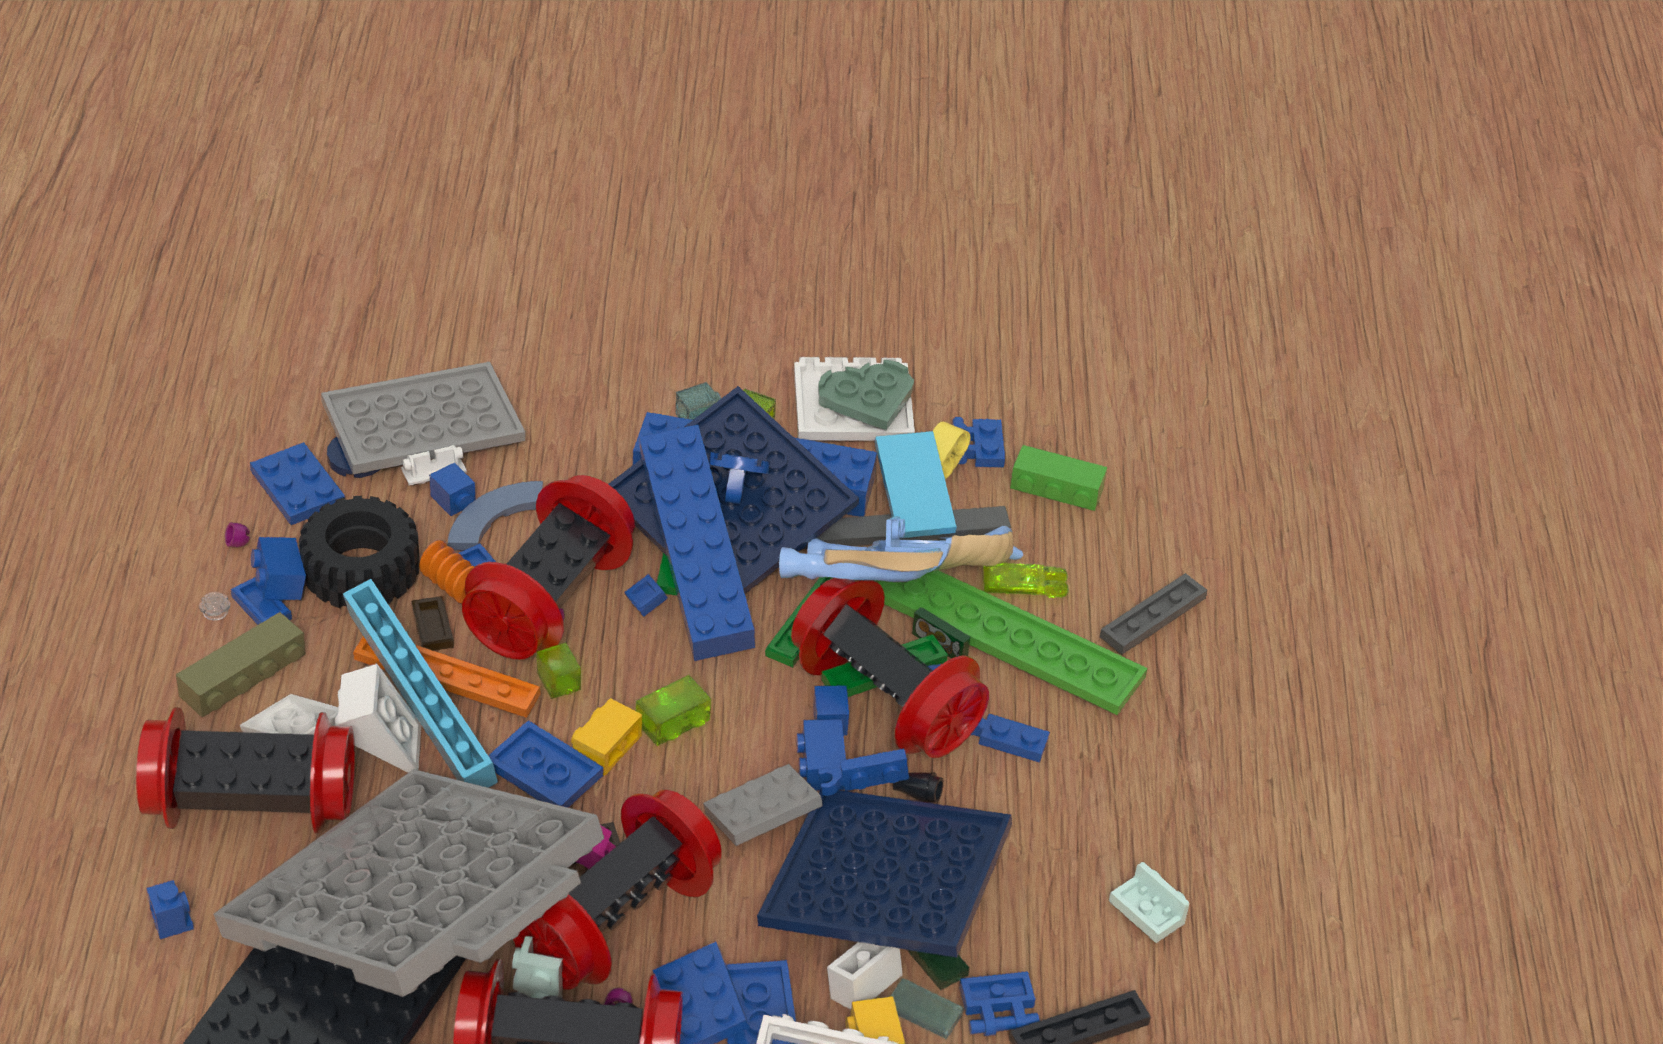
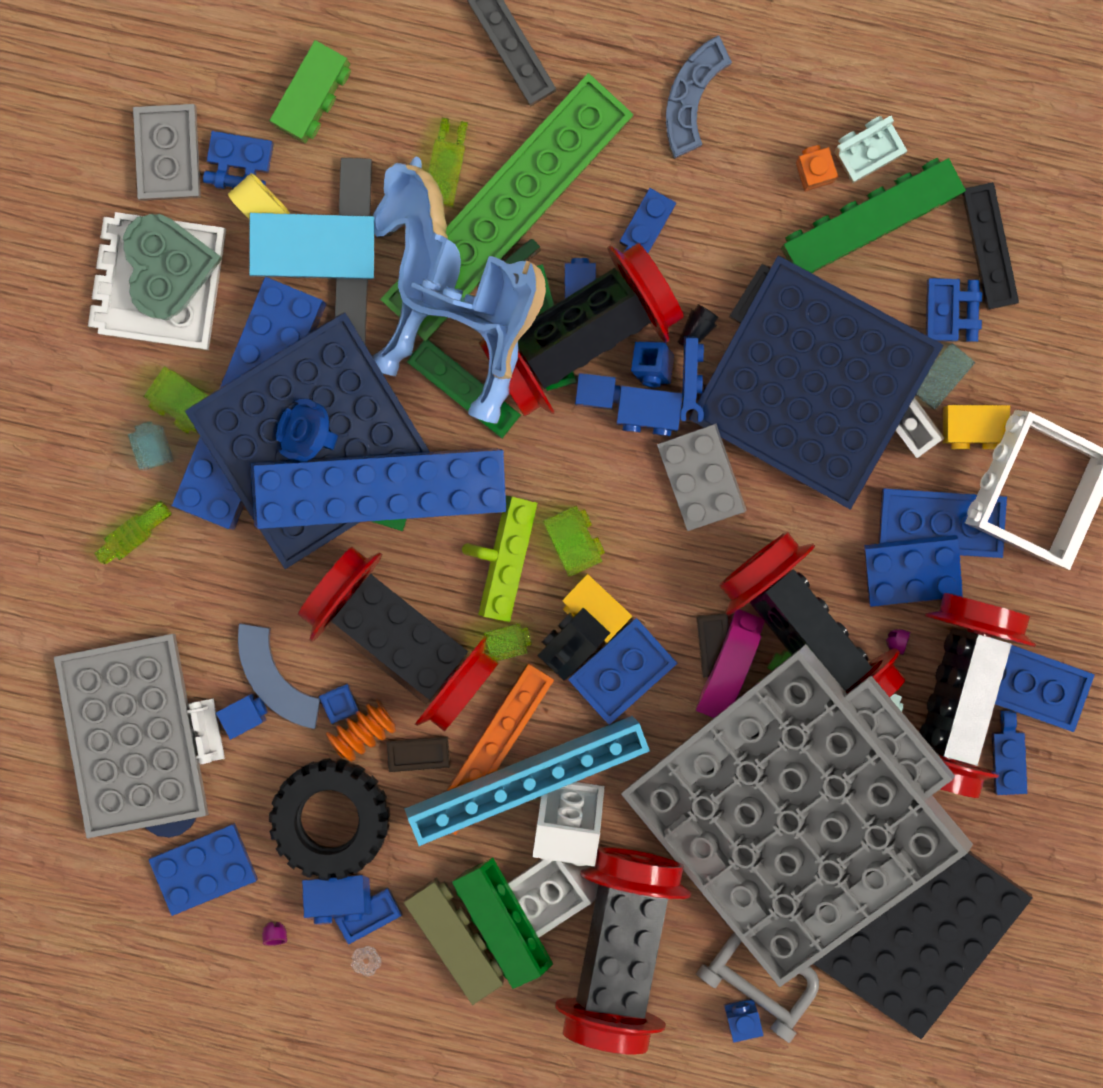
camera: 80 degrees left, 45 degrees up
(164, 950) = (785, 1020): none -> light grey bar
(265, 693) = (502, 923): none -> green brick
(566, 709) = (573, 644): none -> black brick
(612, 402) = (132, 533): none -> clear neon green hinge
(643, 662) = (505, 558): none -> lime plate
(646, 595) = (414, 543): blue tile -> none
(870, 738) = (652, 363): none -> blue brick
(972, 393) = (166, 152): none -> light grey plate
(1077, 916) = (875, 217): none -> green brick
(1113, 859) = (816, 168): none -> orange brick
(1156, 755) = (686, 94): none -> sand blue tile

